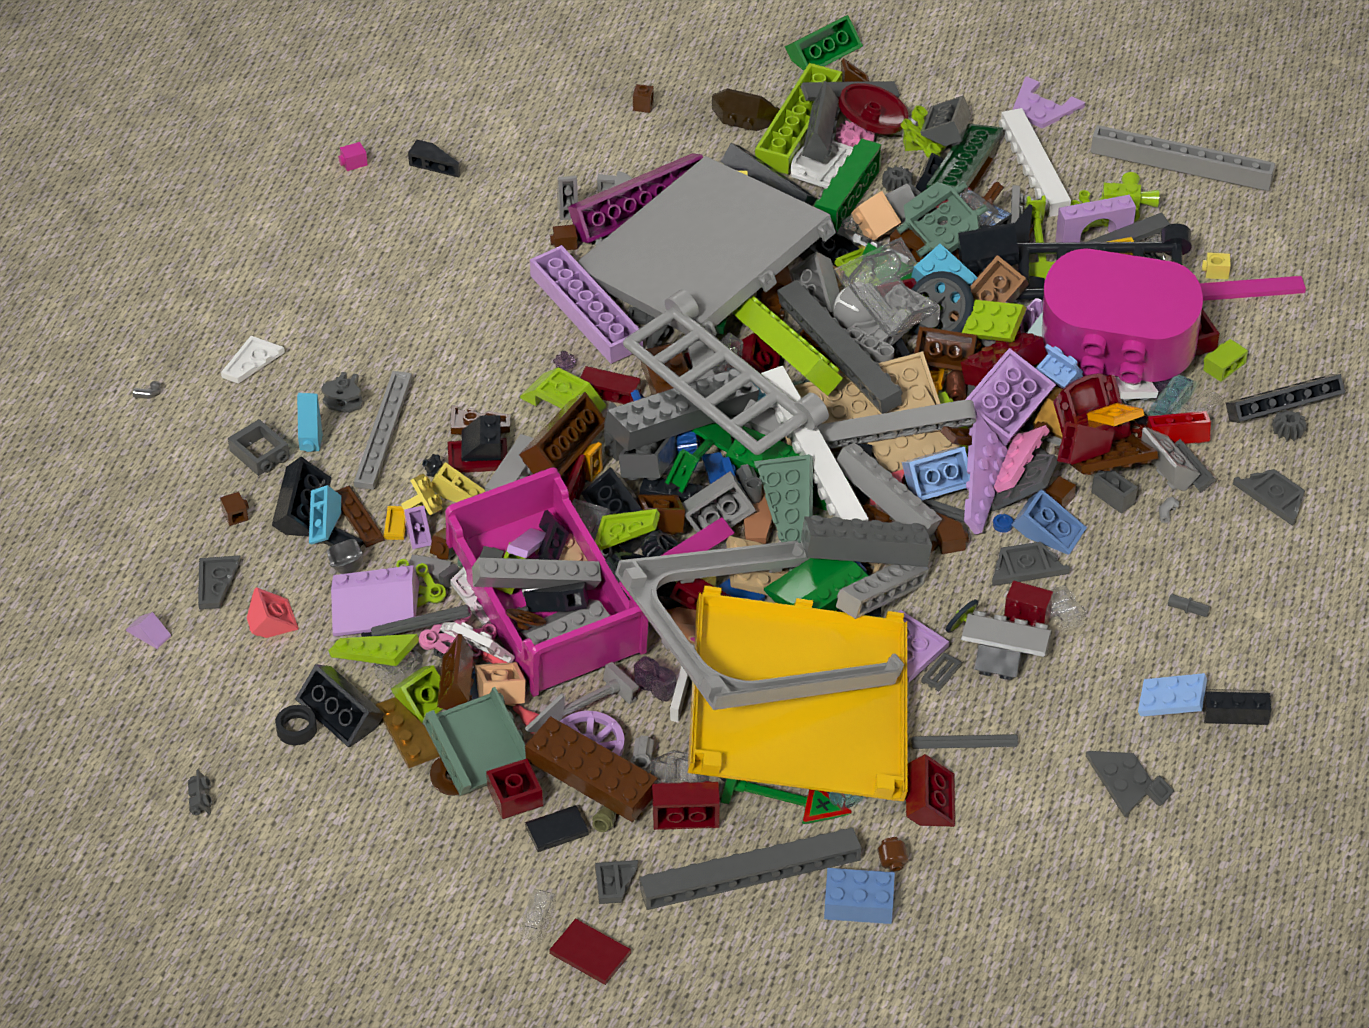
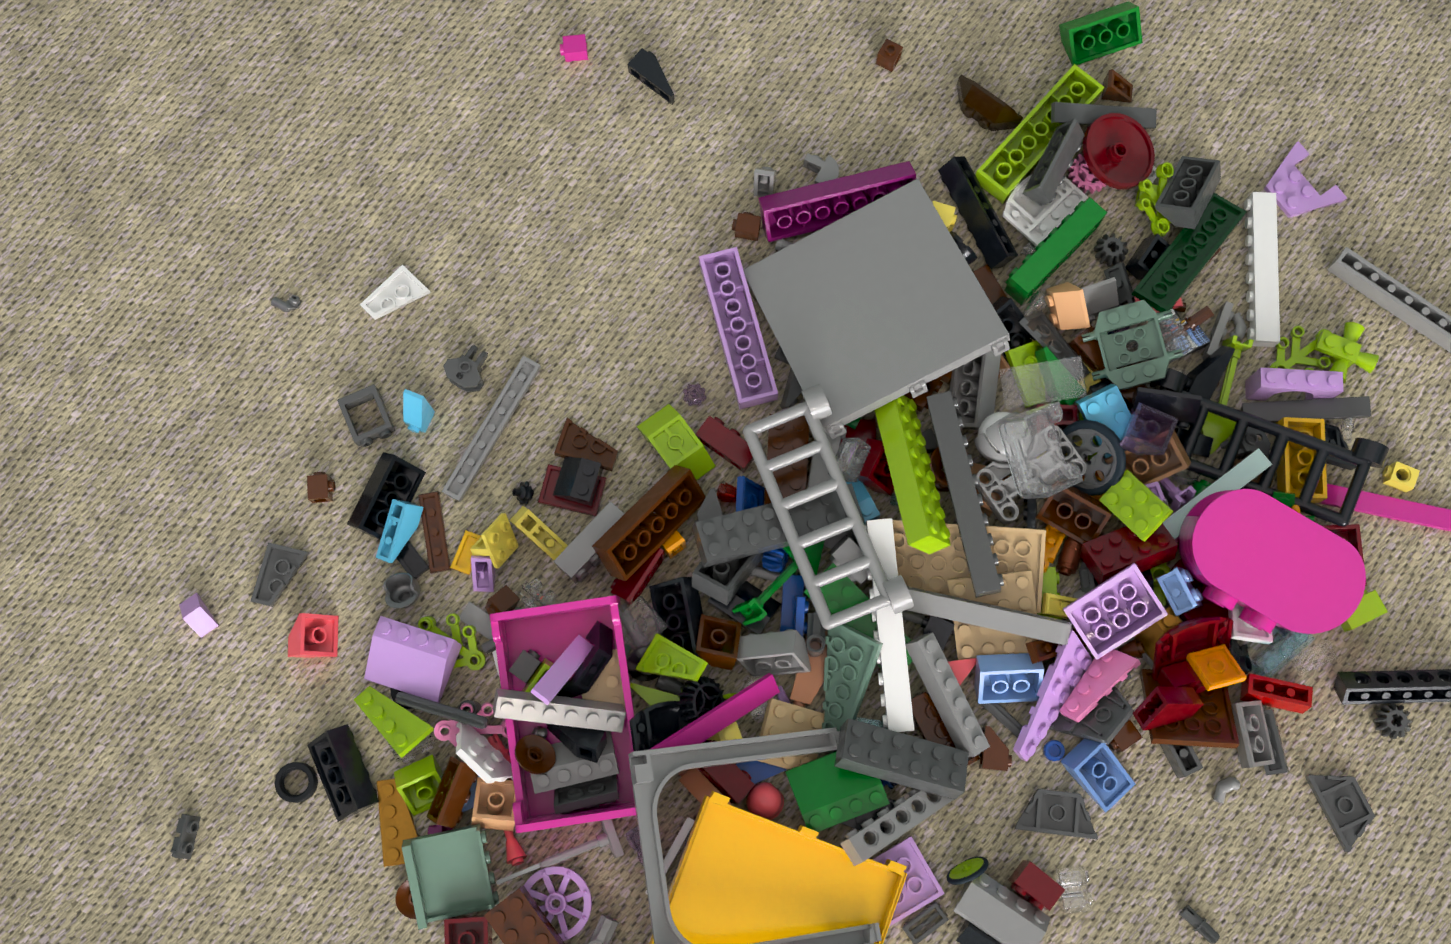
camera: 20 degrees right, 30 degrees up
(978, 260) = (1148, 431): none -> clear purple slope

